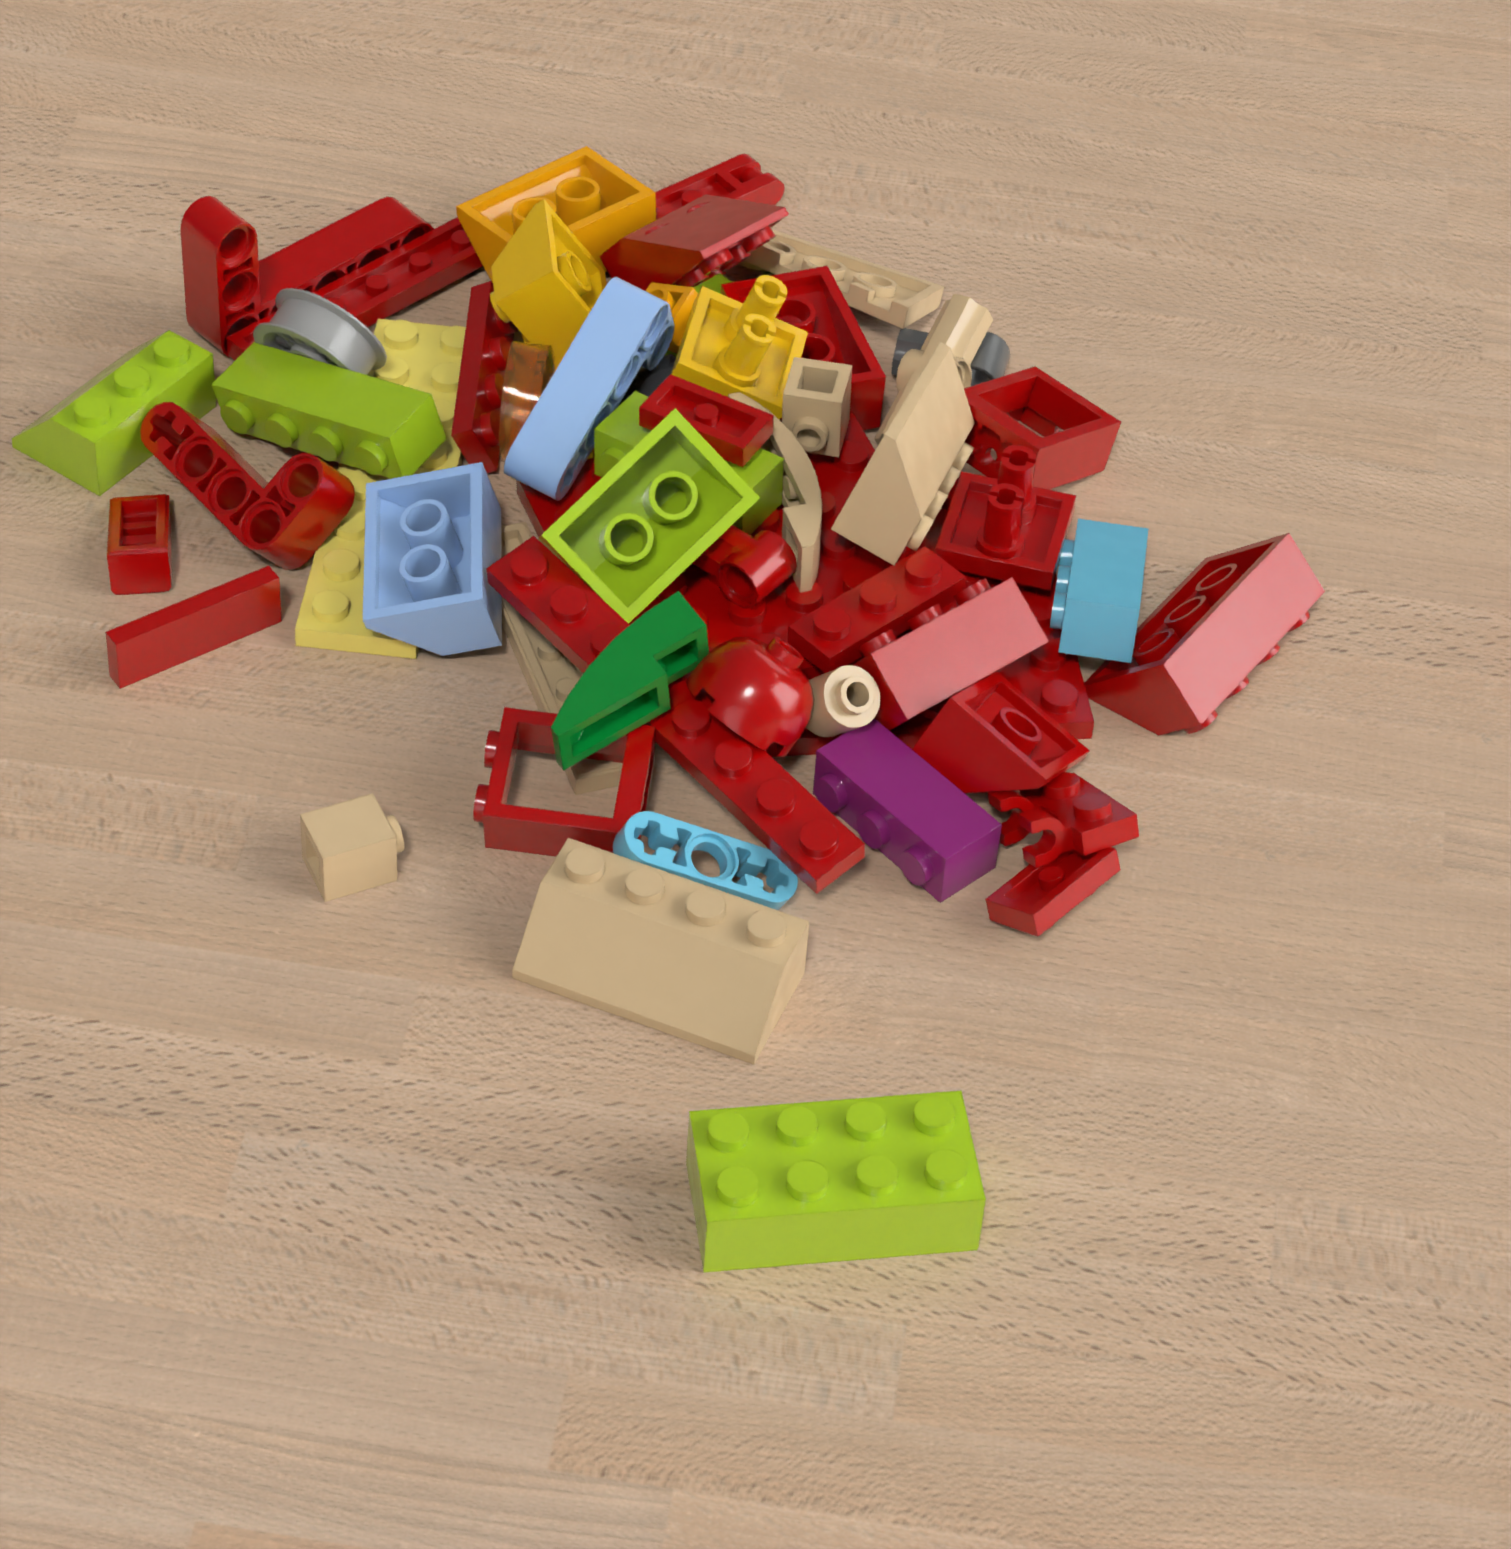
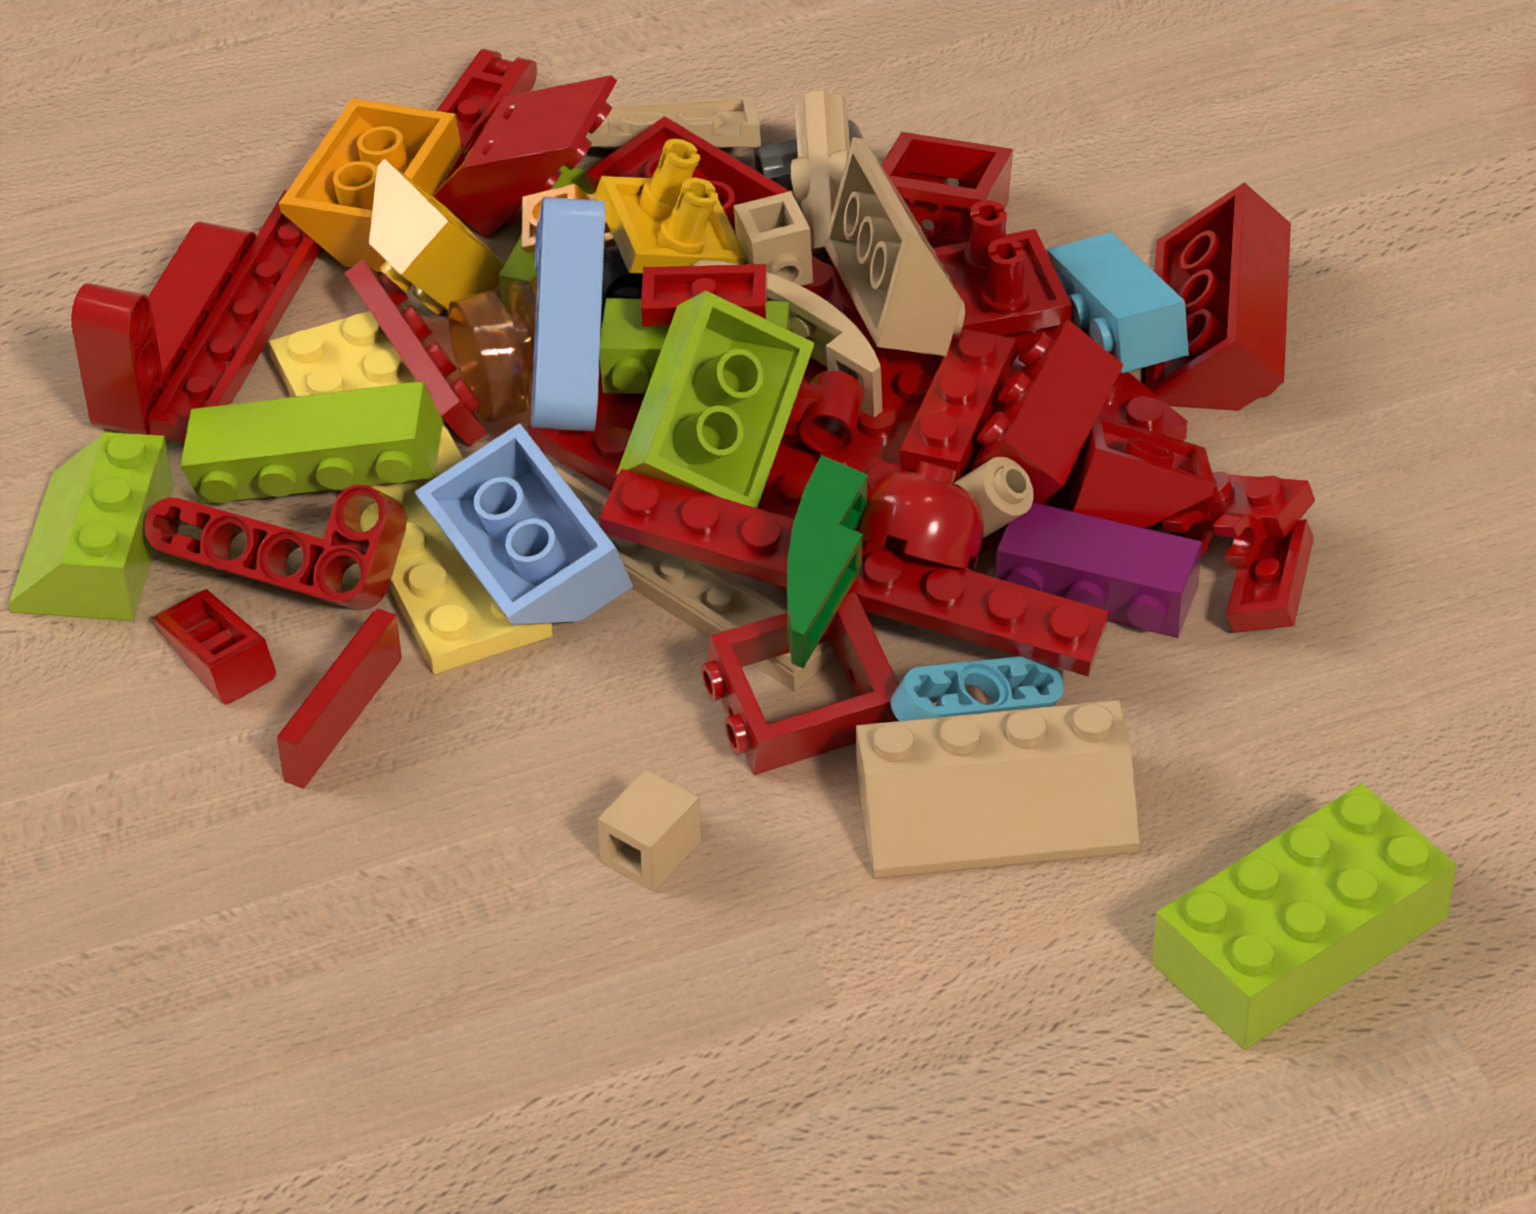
camera: 25 degrees left, 0 degrees up
(320, 331) = (257, 370): light grey wheel -> none

